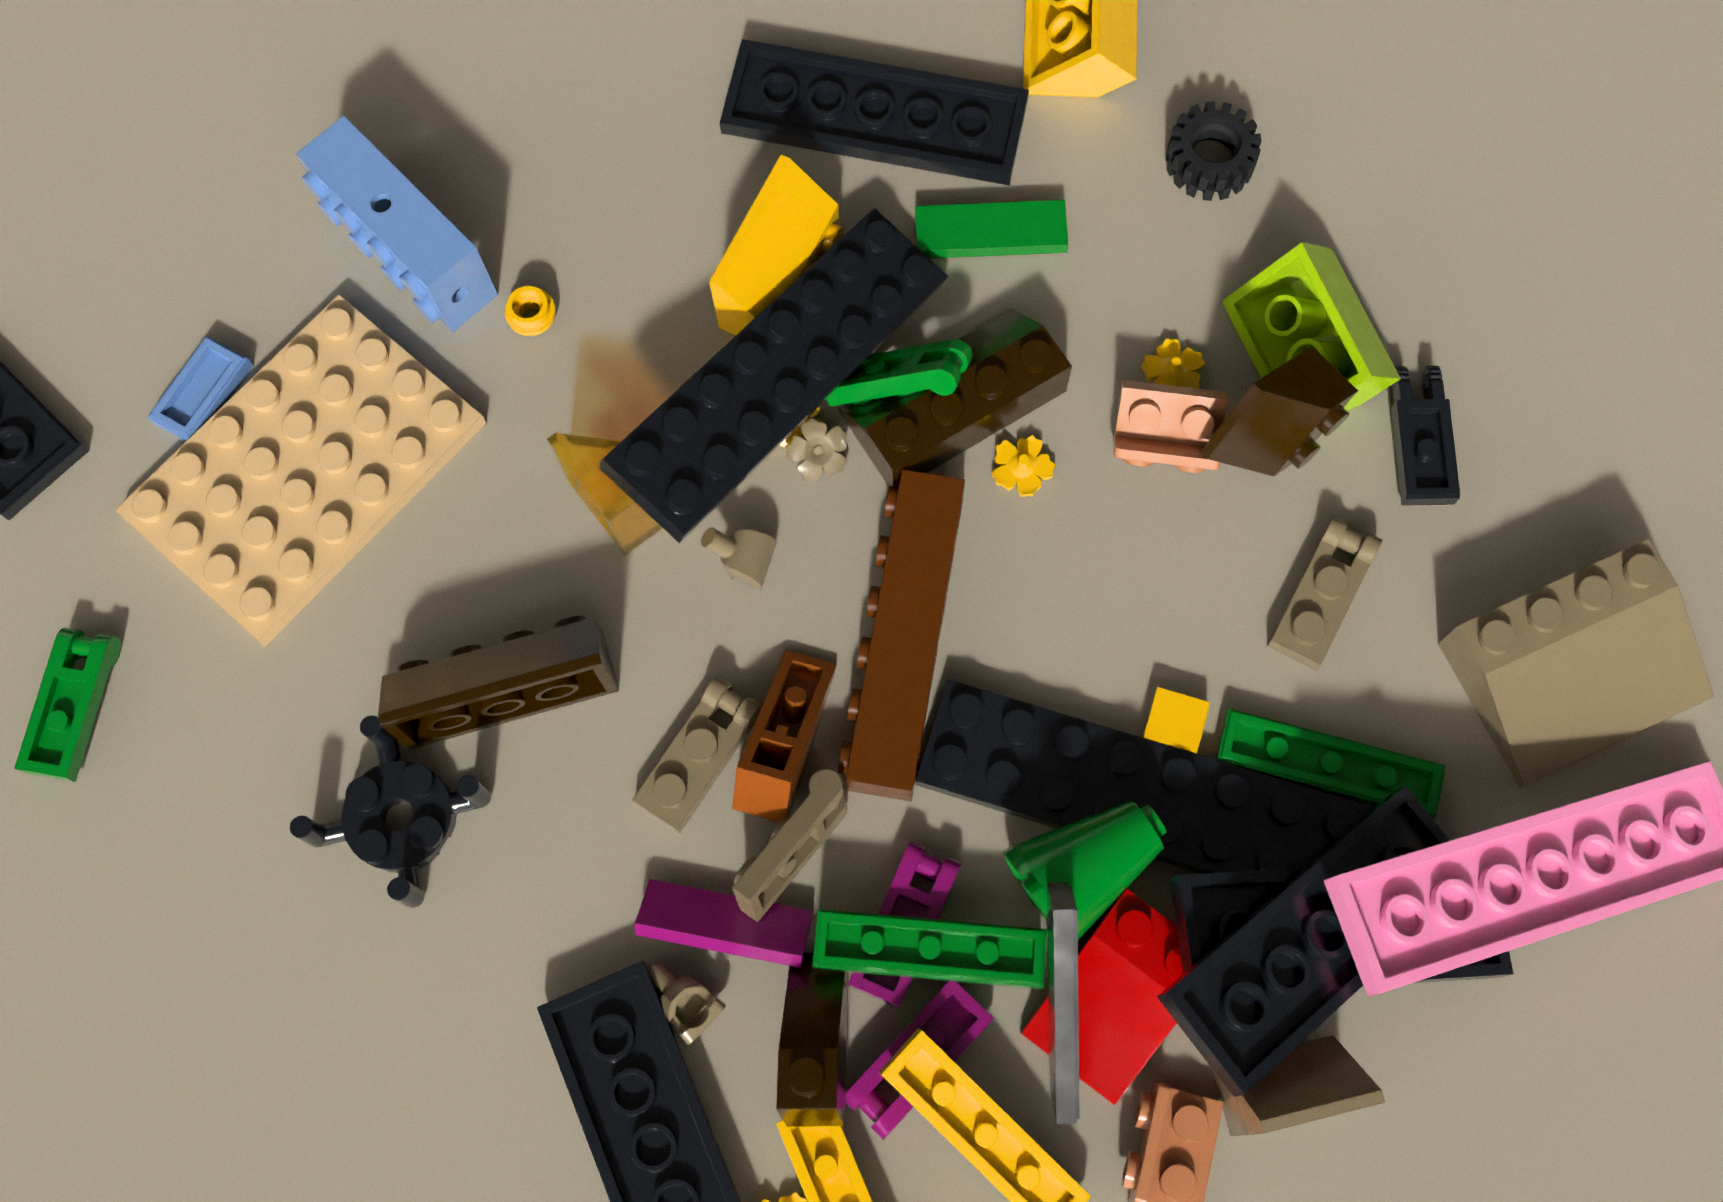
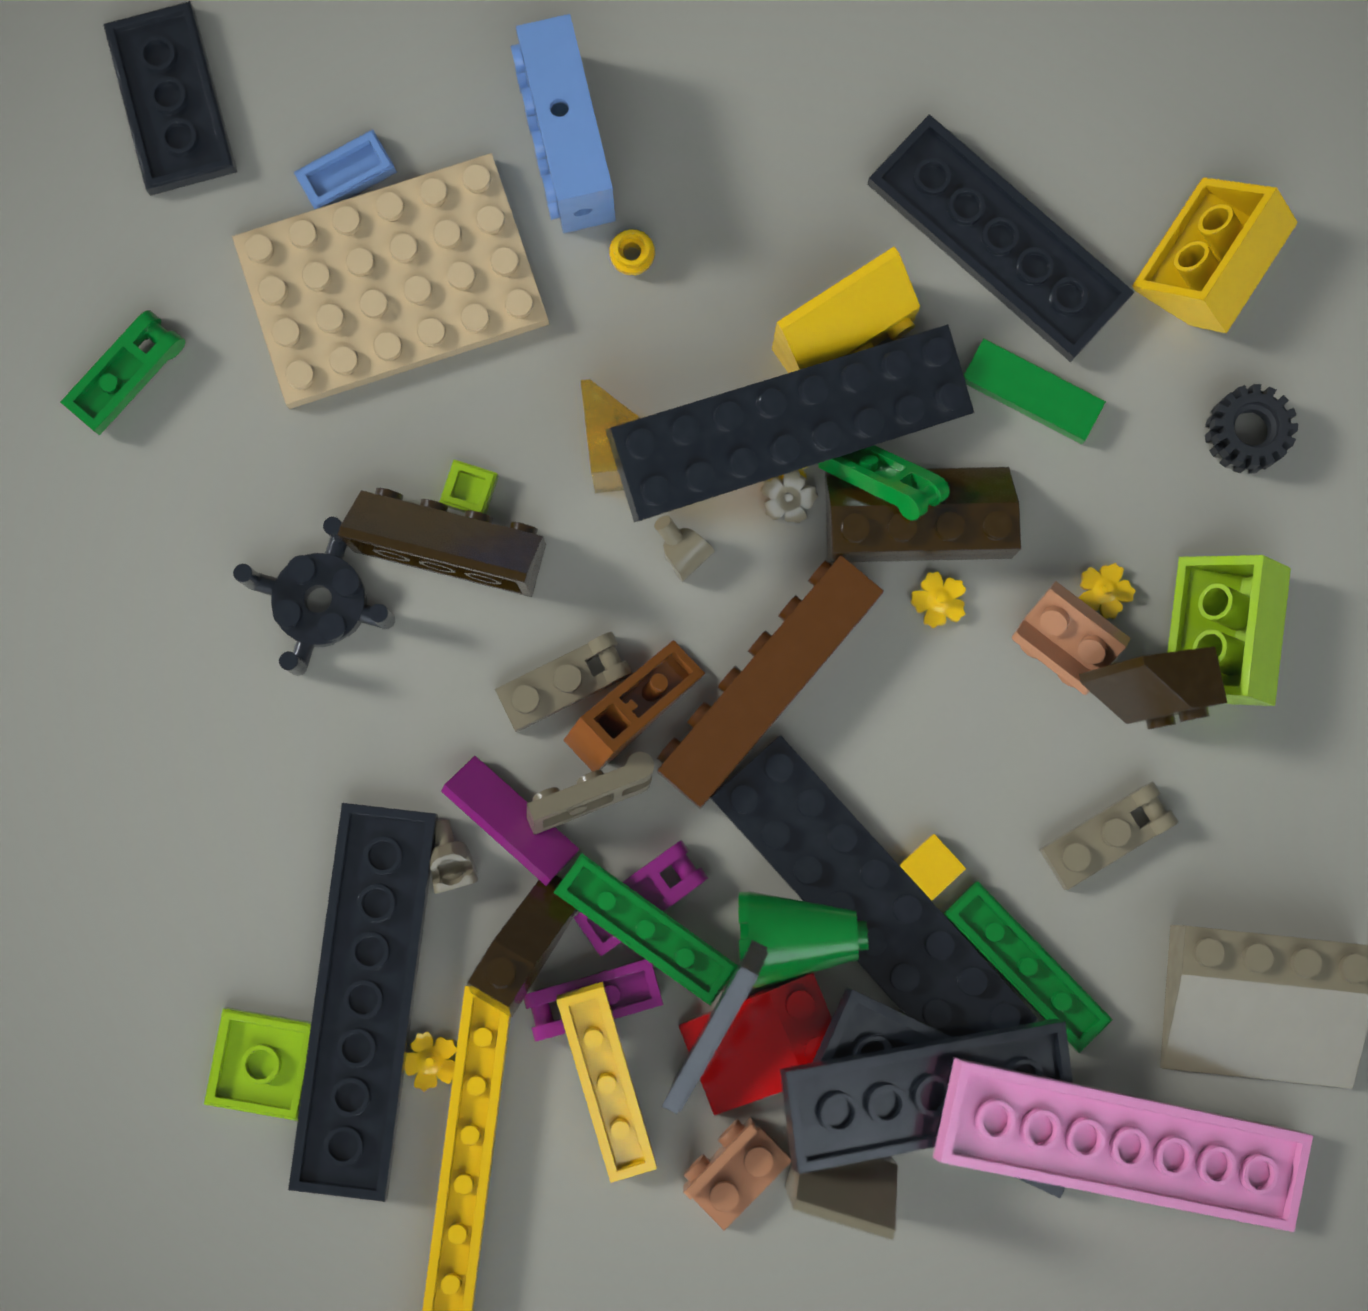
camera: 25 degrees right, 10 degrees up
(492, 617) = (468, 488): none -> lime tile
(1424, 441) = (1263, 763): black hinge -> none

